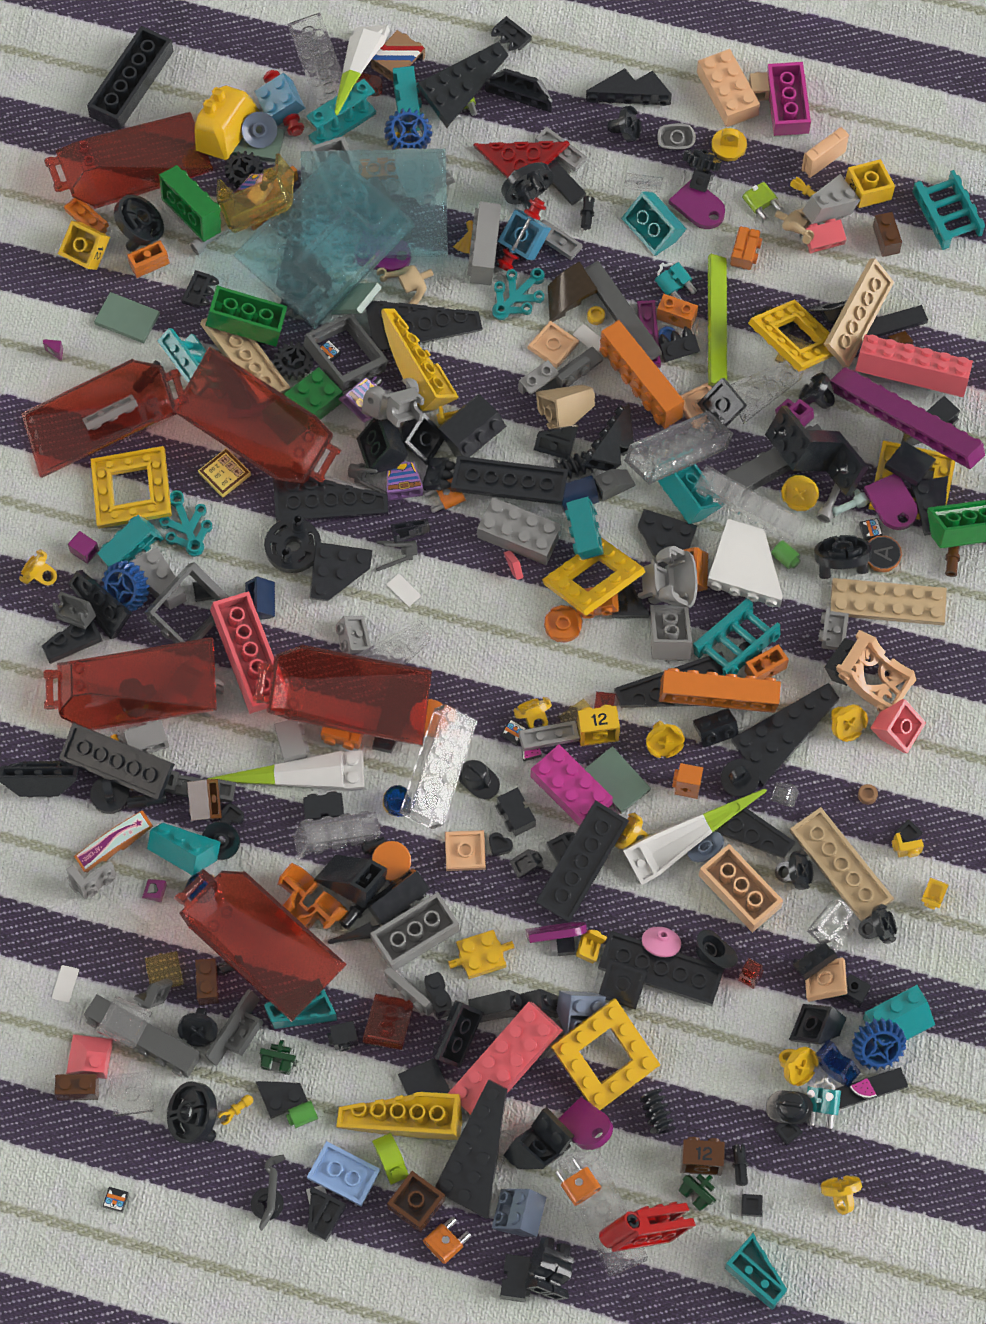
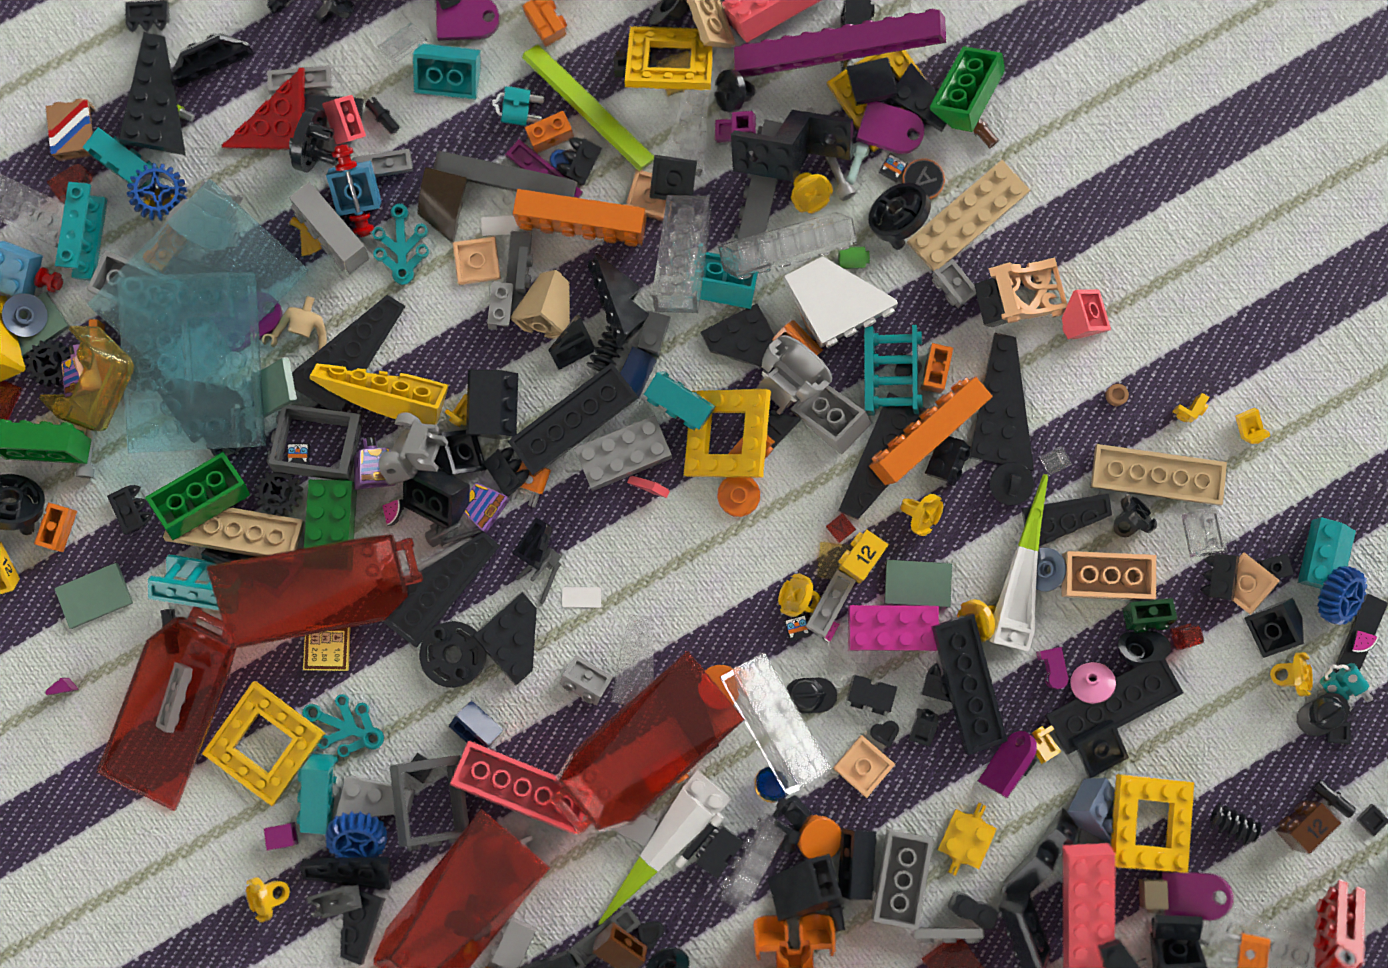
camera: 45 degrees left, 15 degrees up
(318, 790) = (699, 840): none -> black bar
(347, 434) = (393, 511): none -> tile
(360, 933) = (859, 917): black piece -> none
(361, 49) = (33, 151): white plate -> none
(377, 839) = (792, 834): none -> black hand
(393, 825) = (794, 811): none -> black bracket
(559, 1099) = (1153, 895): none -> dark tan brick
(561, 192) = (344, 119): none -> coral brick
(596, 315) = (484, 200): yellow tile -> none
(643, 915) = (1055, 667): none -> magenta leg
(687, 780) = (979, 530): orange brick -> none
(690, 1185) = (1329, 850): dark green hips -> none
(741, 935) = (1150, 614): none -> dark green brick
(837, 1065) = (1326, 642): clear blue brick -> none
(848, 722) = (1047, 353): yellow tile -> none
(882, 923) = (1241, 493): black tile -> none
(908, 832) = (1179, 395): black tile -> none

